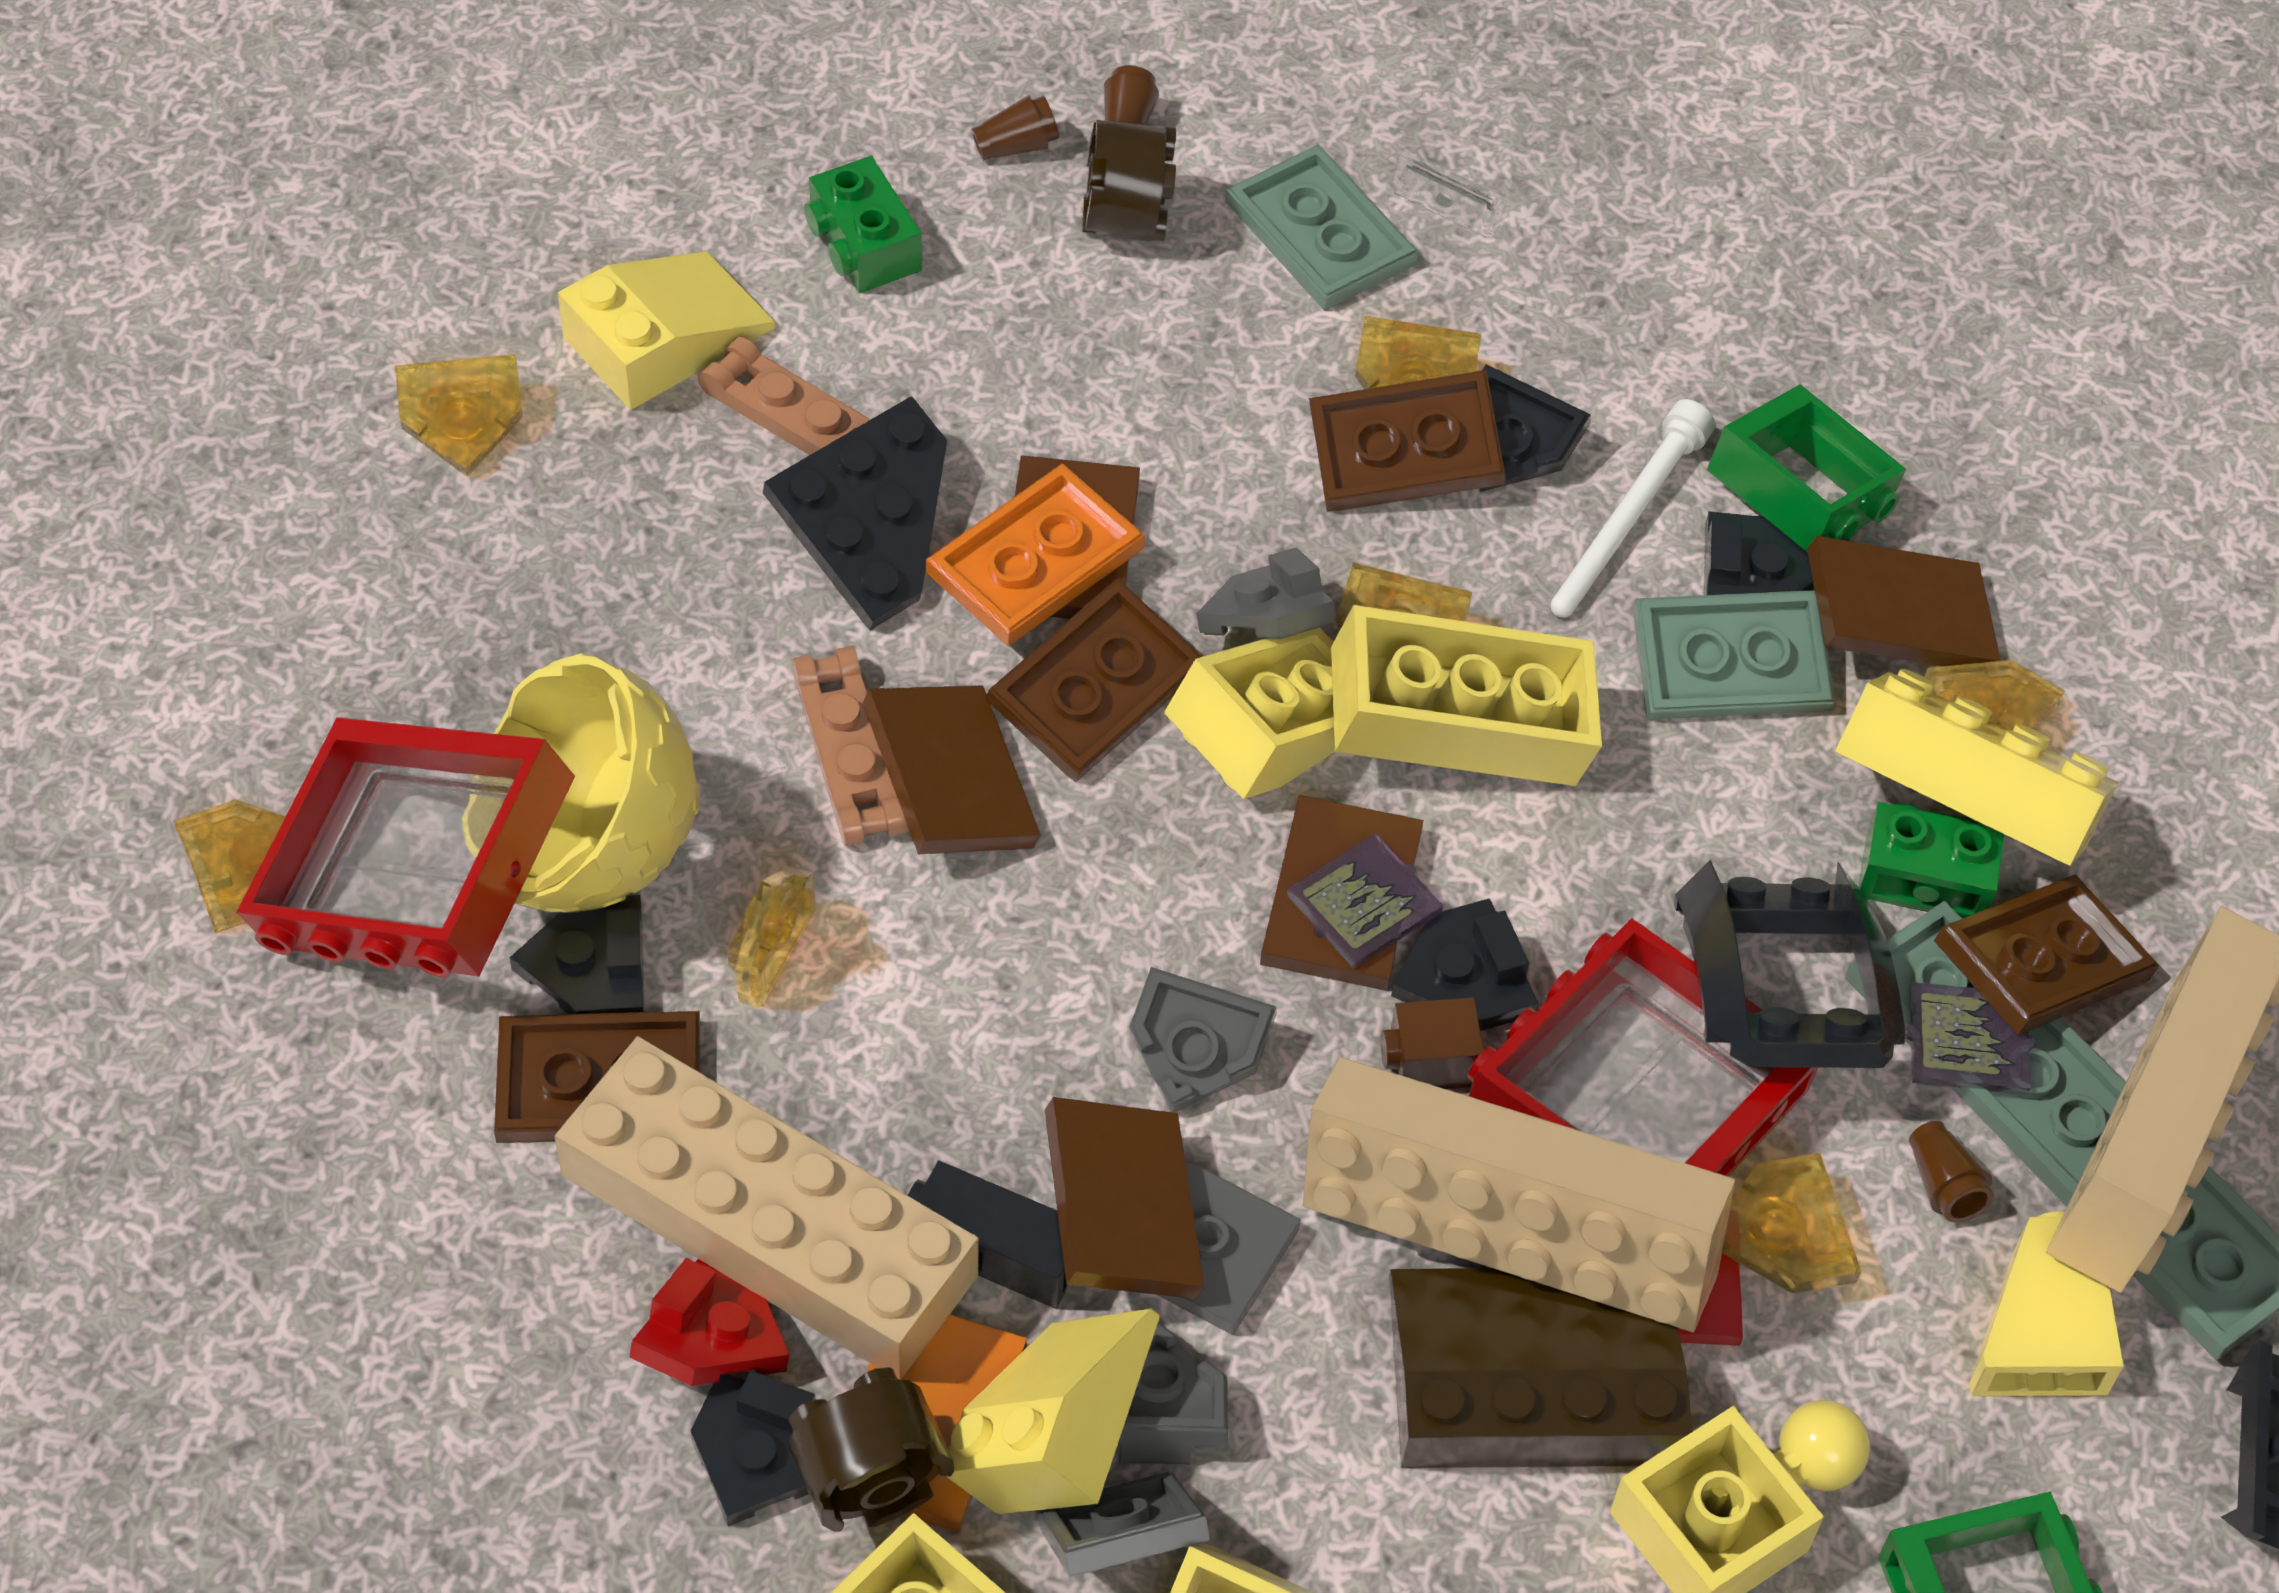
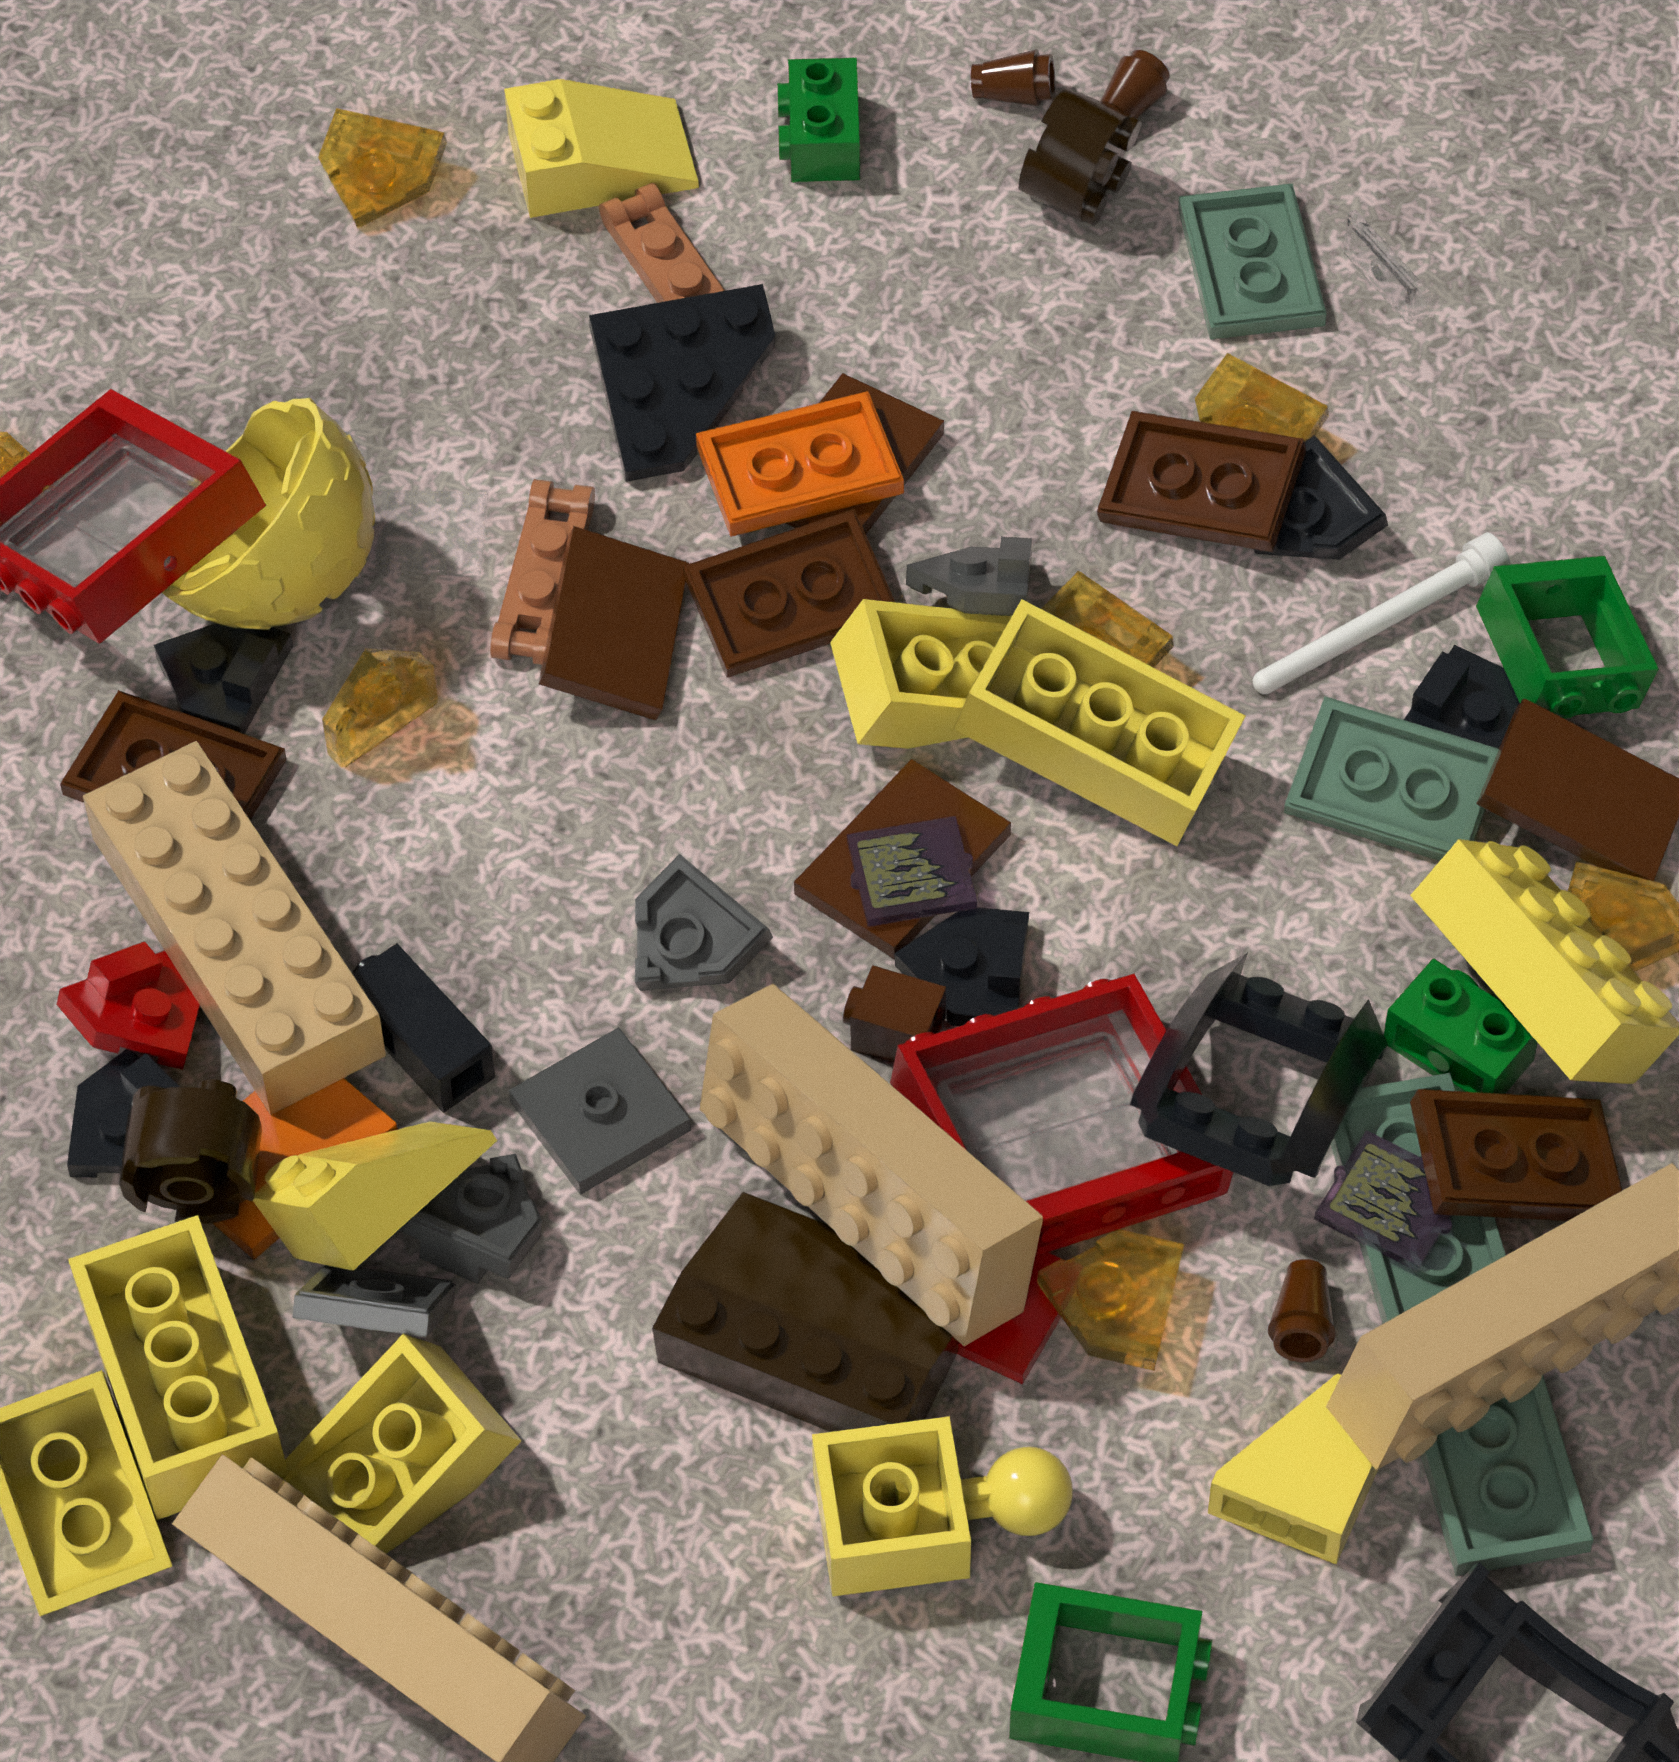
camera: 30 degrees right, 0 degrees up
(1123, 1198) = (534, 1035): reddish brown tile -> none

